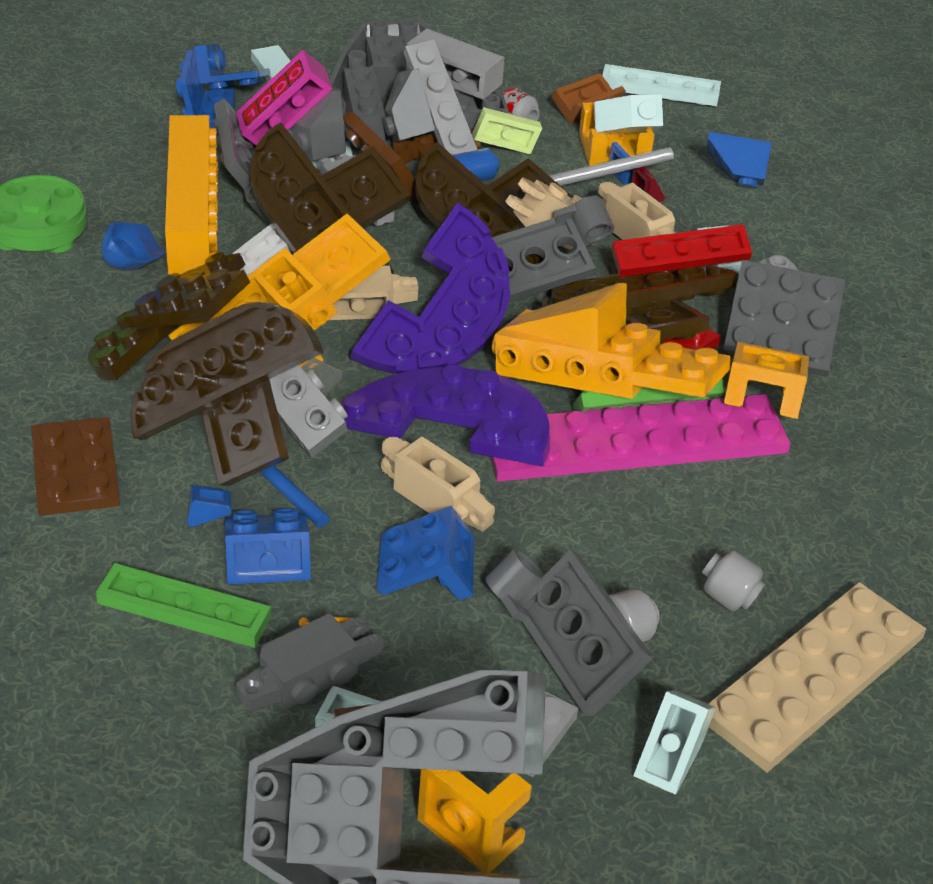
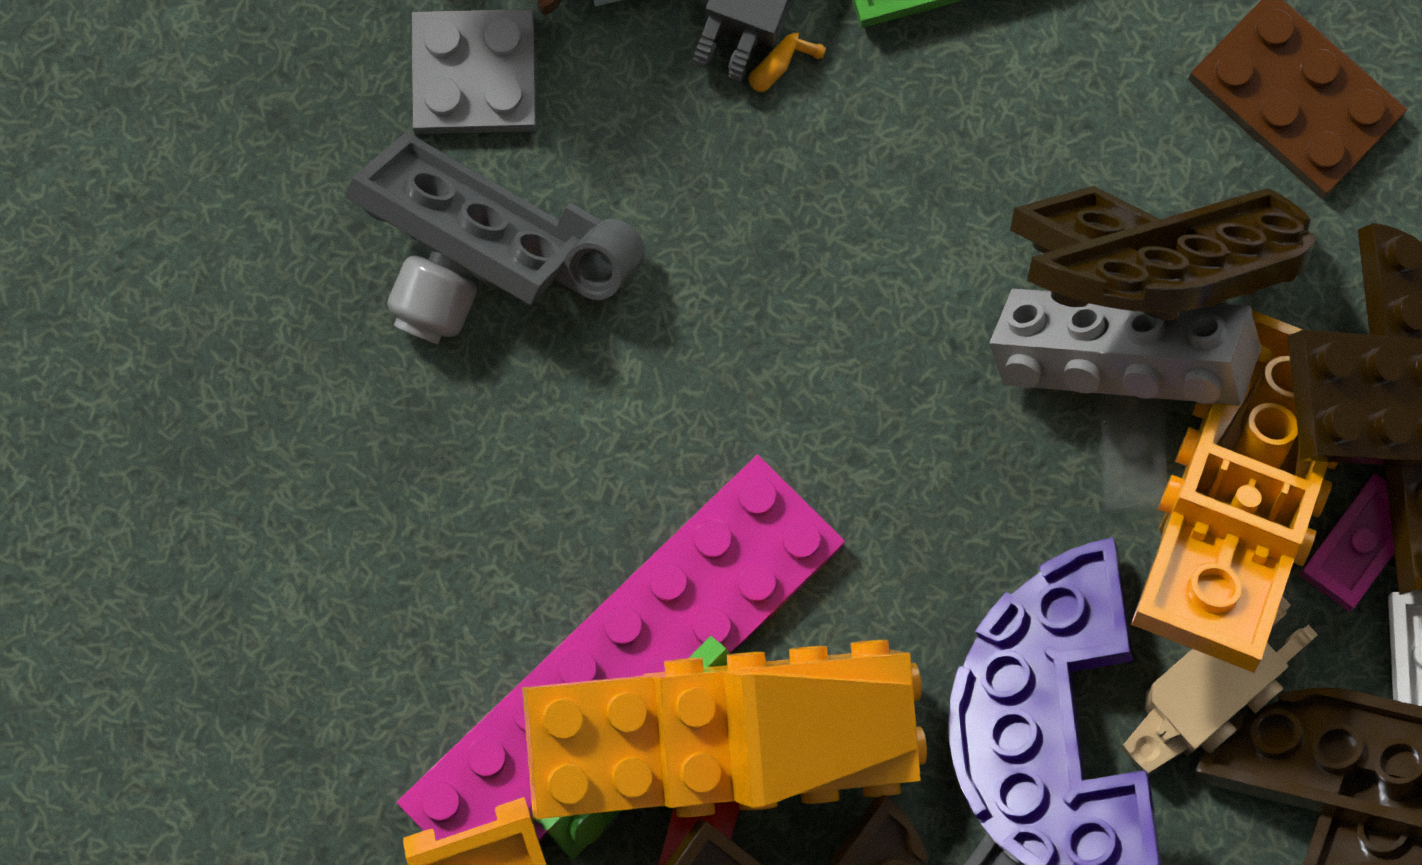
camera: 150 degrees right, 35 degrees up
(207, 505) = (1077, 146): blue slope -> none
(267, 547) = (955, 125): blue bracket -> none
(296, 496) = (975, 236): blue bar -> none
(425, 549) = (738, 236): blue bracket -> none
(436, 480) = (810, 350): tan hinge -> none
(506, 414) = (893, 551): dark purple plate -> none
(674, 740) = (273, 154): light aqua slope -> none
(733, 580) = (334, 454): light grey head -> none
(813, 676) = (164, 388): tan plate -> none

